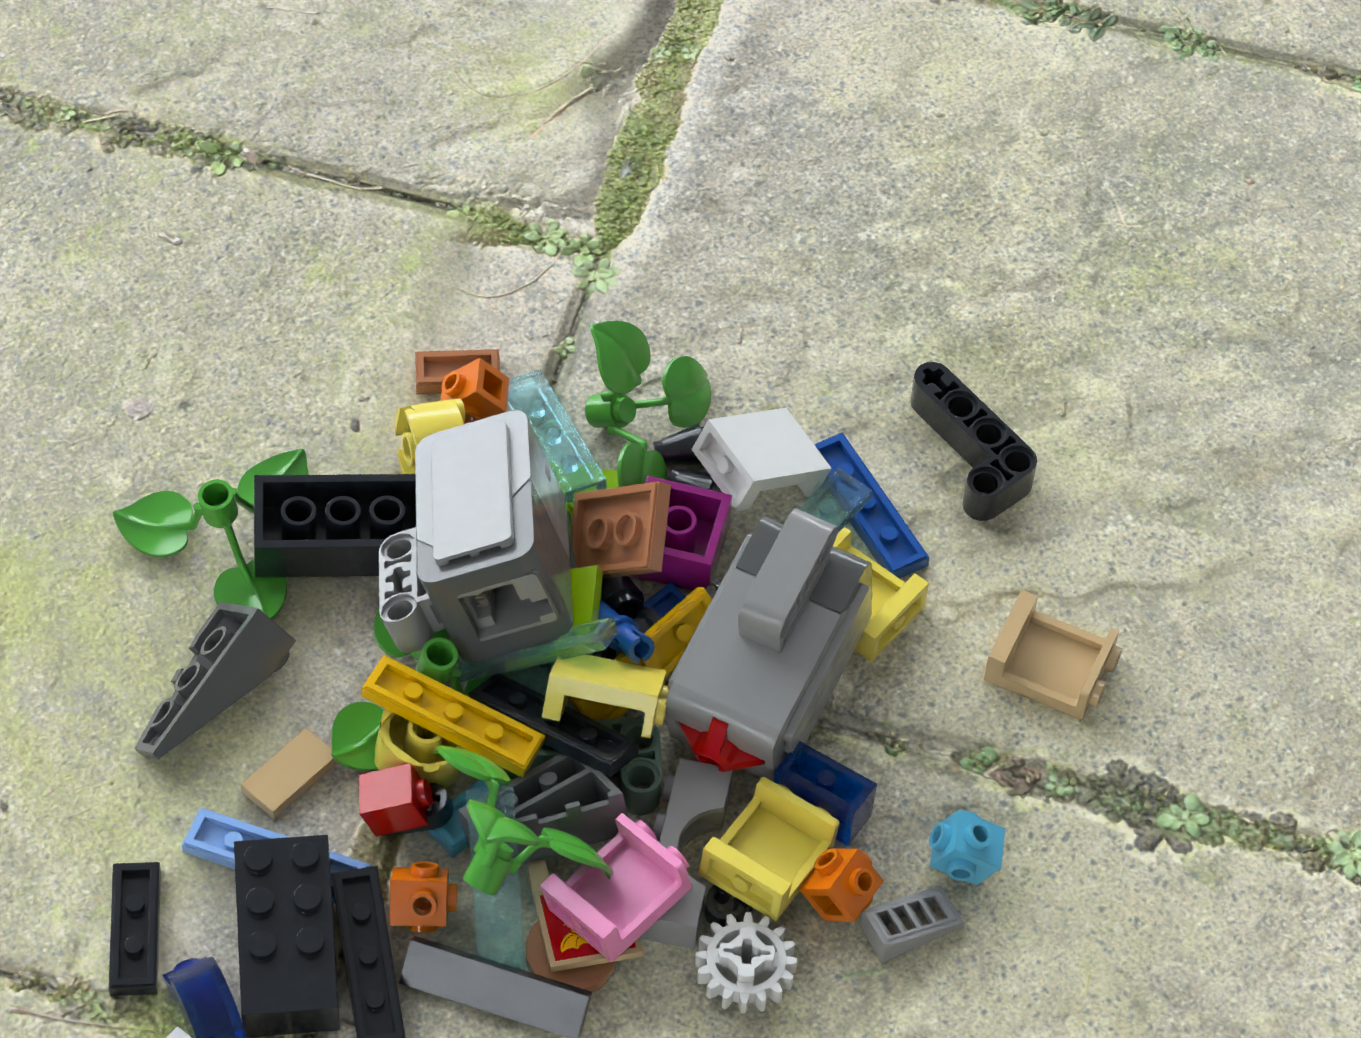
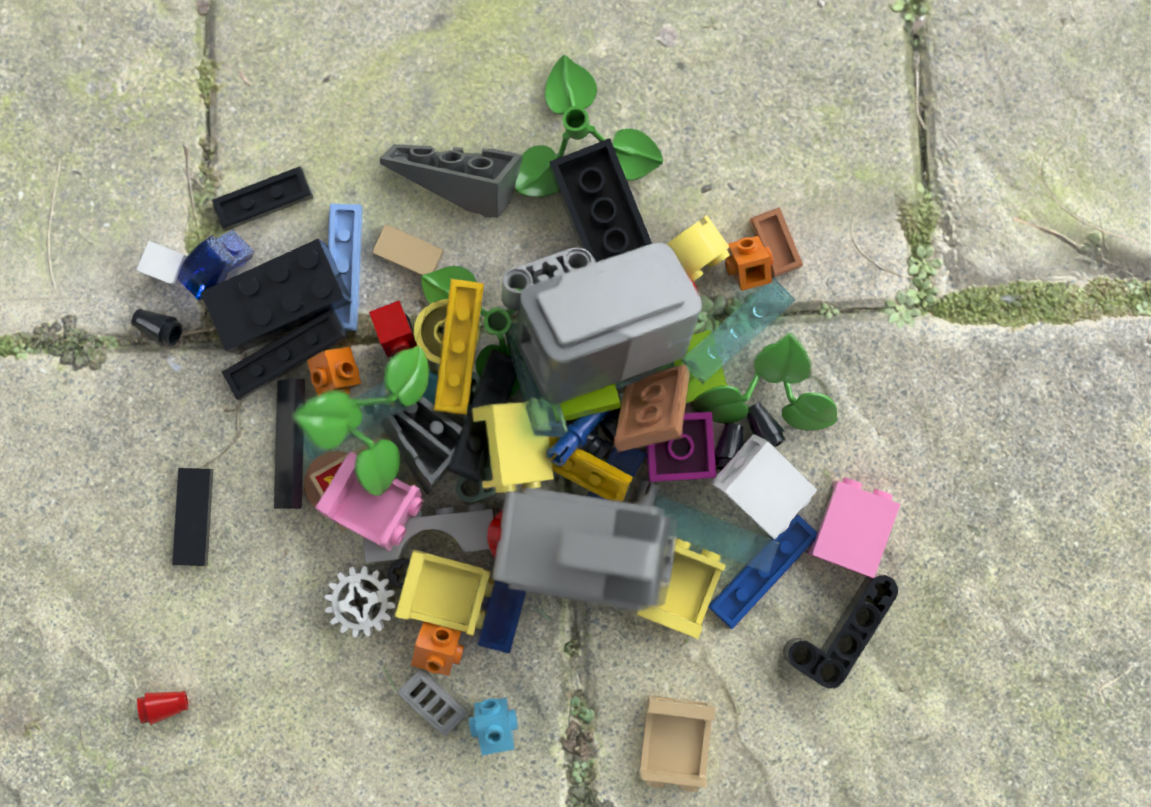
camera: 75 degrees right, 30 degrees up
(849, 390) = (855, 527): none -> bright pink panel

